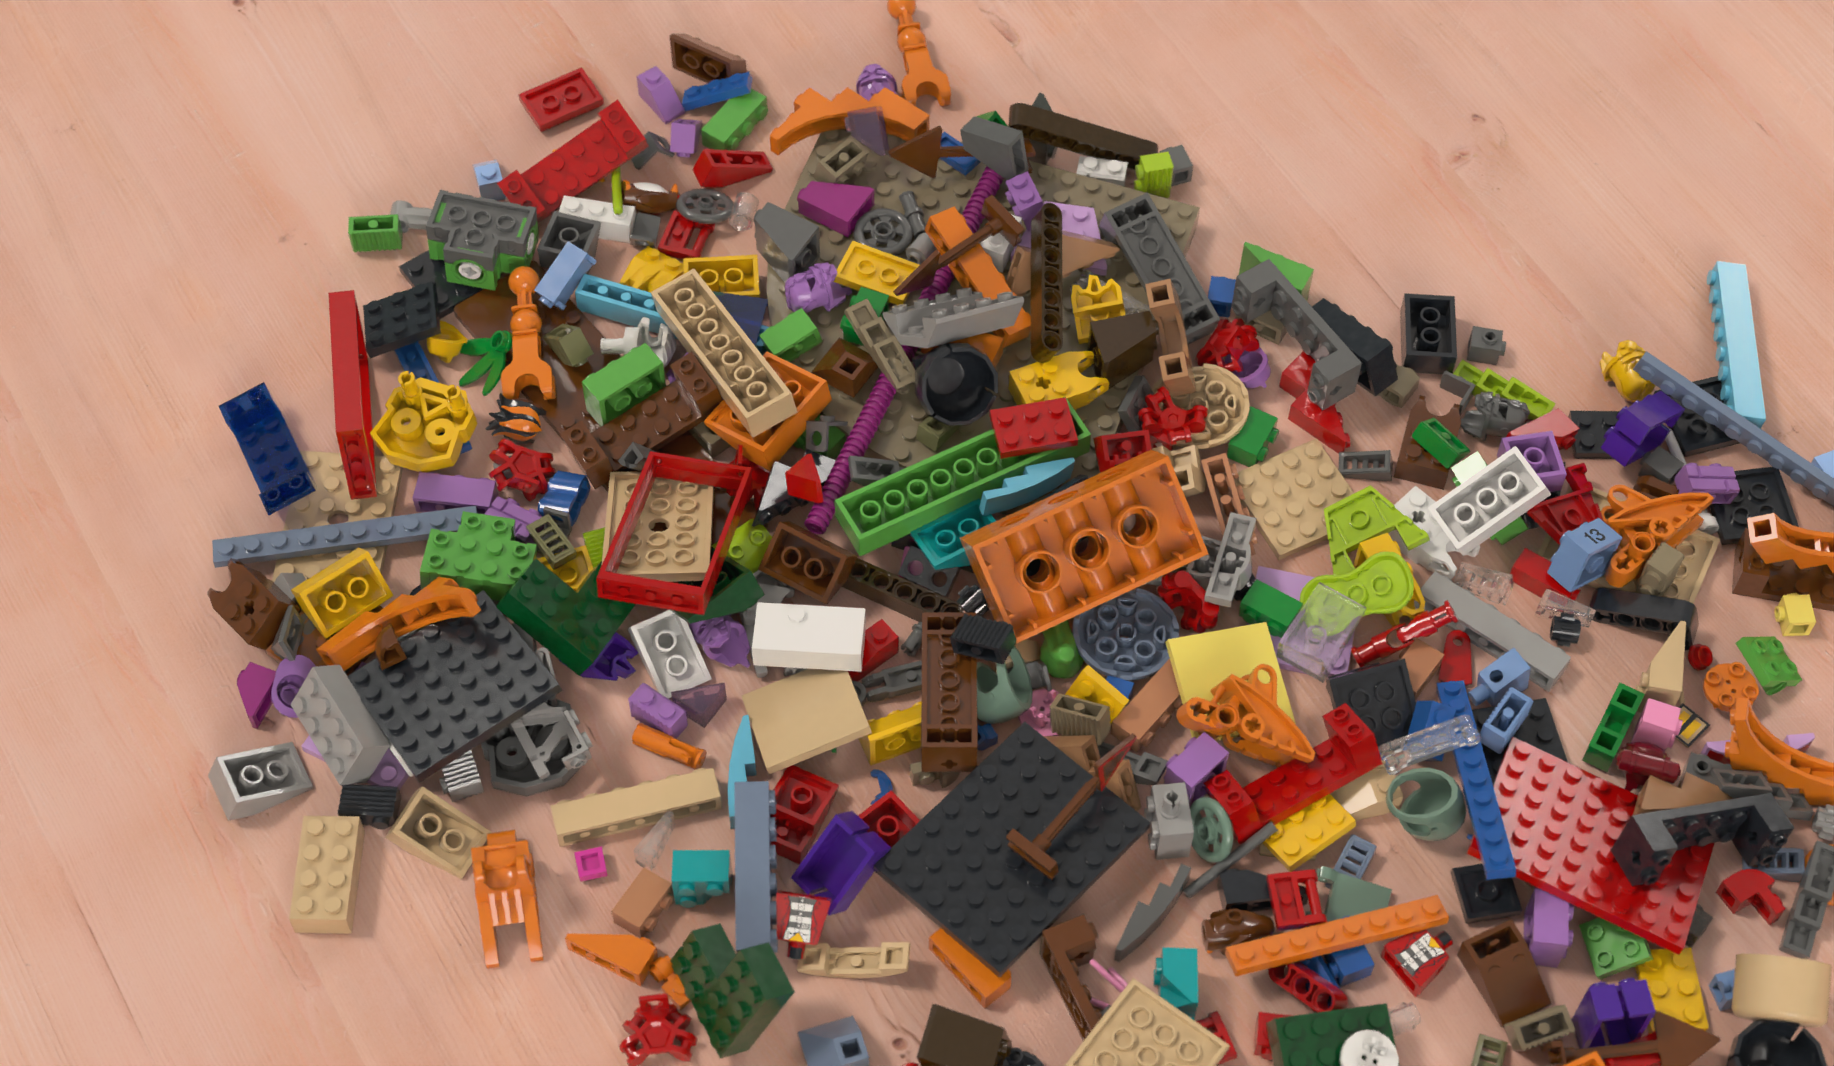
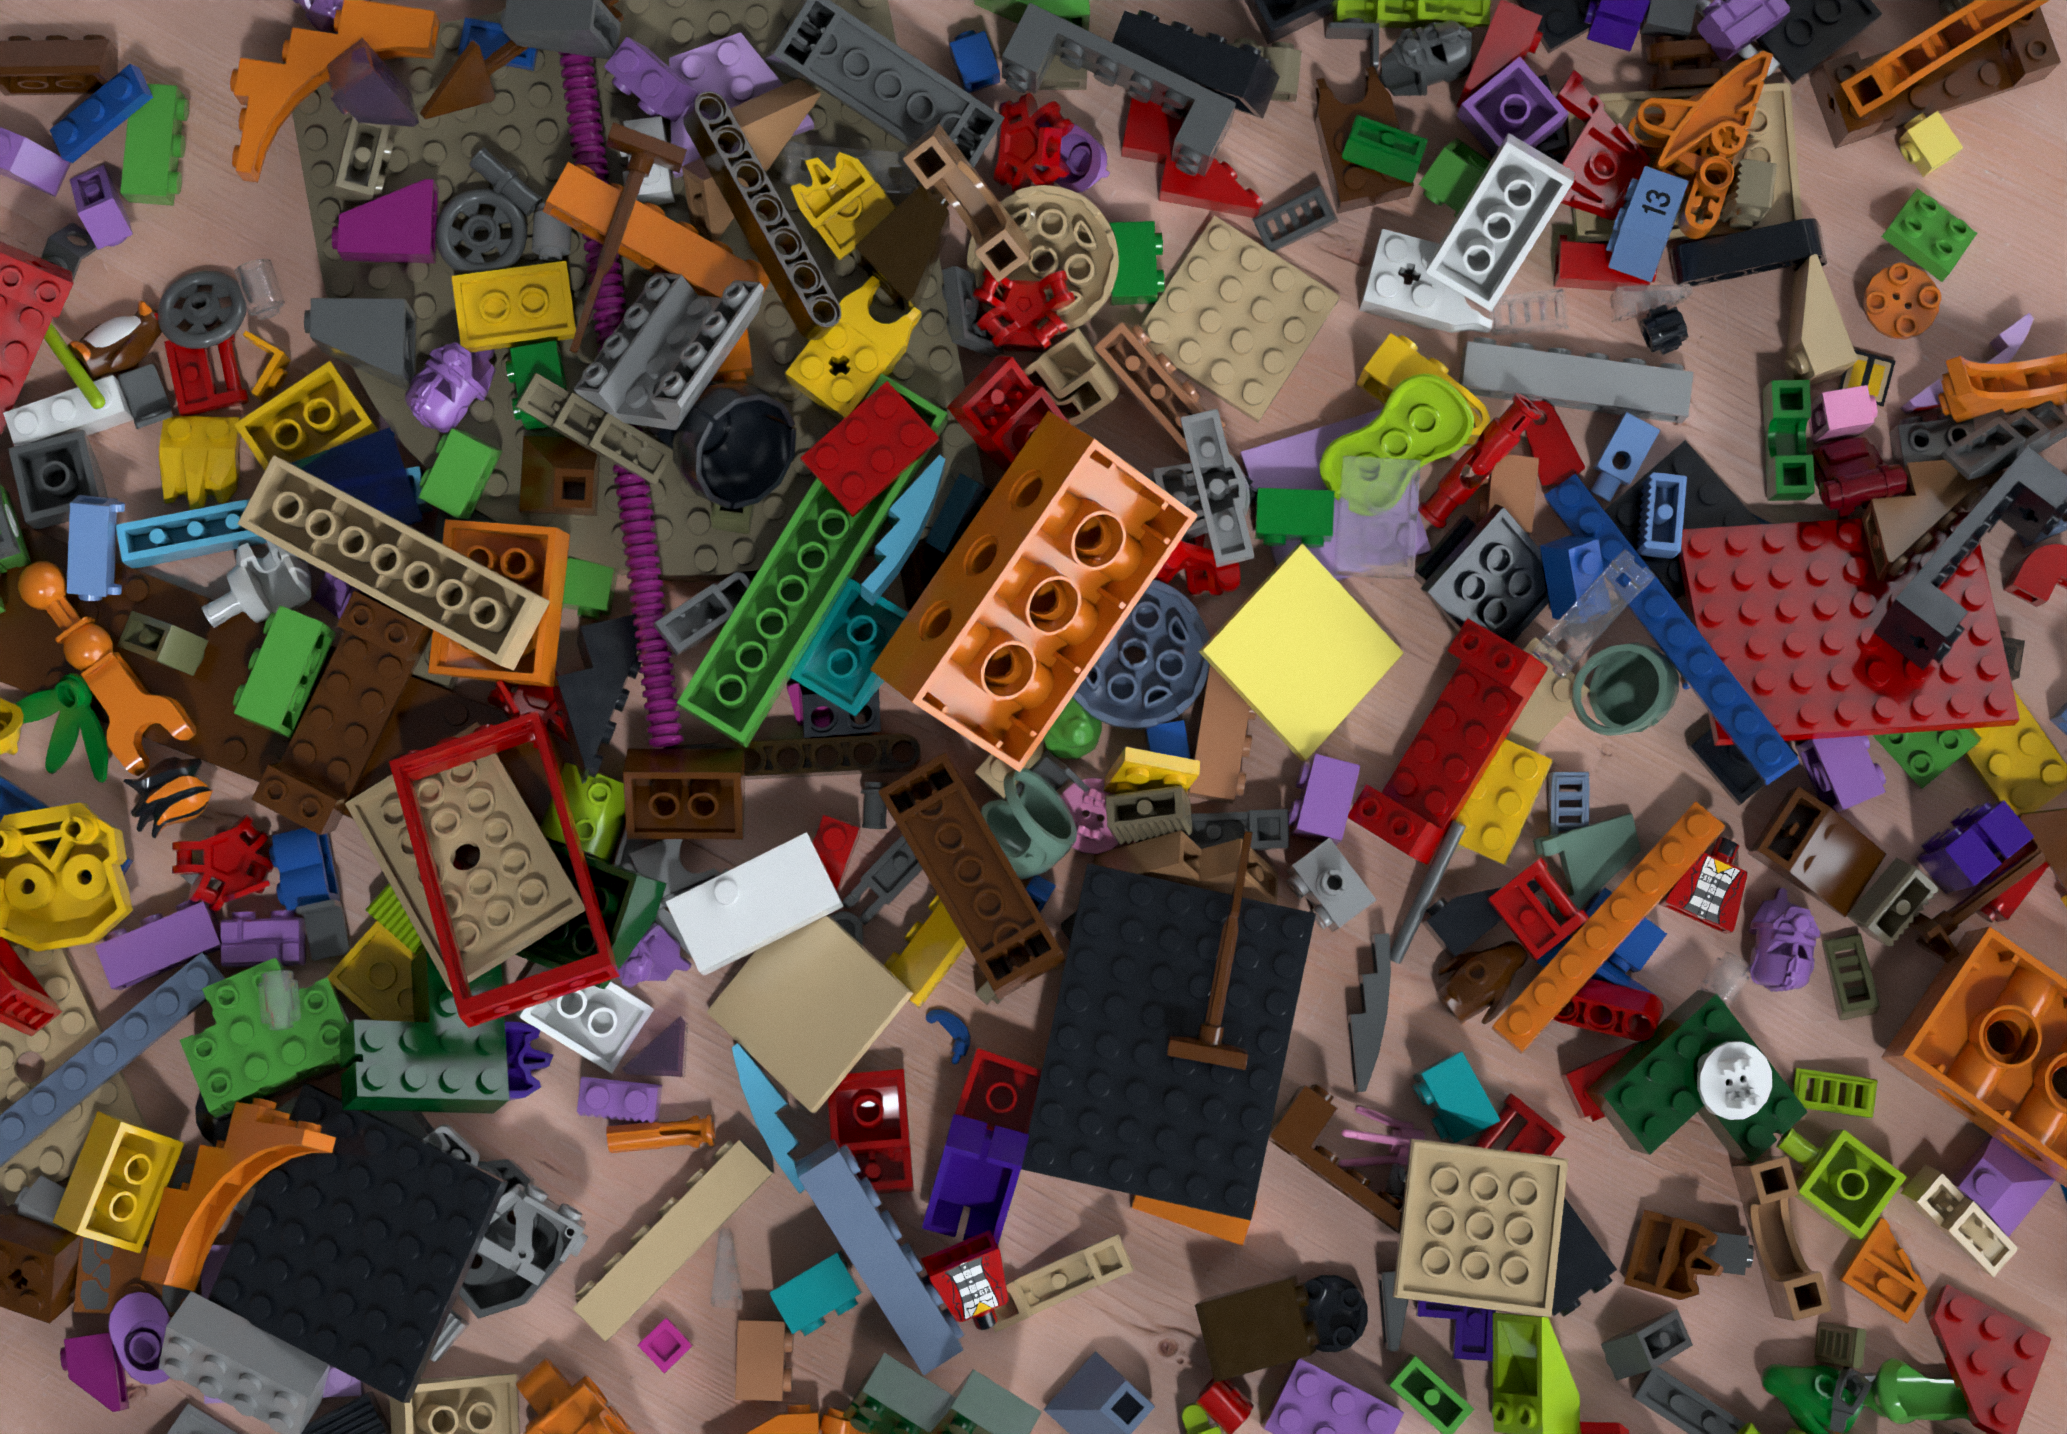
camera: 35 degrees left, 25 degrees up
(288, 634) = (93, 1283): dark grey slope -> none
(388, 648) = (241, 1236): reddish brown brick -> none
(501, 532) = (279, 999): none -> clear brick
(554, 560) = (363, 963): olive slope -> none
(635, 456) = (372, 764): dark grey brick -> none
(728, 247) = (274, 373): none -> light orange bracket
(729, 167) = (196, 224): red slope -> none
(804, 480) = (616, 692): red slope -> none
(821, 425) = (583, 585): dark grey bracket -> none
(973, 600) = (914, 719): black gear -> none
(983, 638) = (984, 798): black brick -> none
(1209, 830) = (1386, 870): sand green plate -> none
(1251, 712) = (1355, 701): orange piece -> none
(1362, 518) = (1341, 322): lime wing -> none
(1449, 1016) = (1782, 944): none -> medium lavender helmet
(1700, 656) = (1842, 272): red plate -> none

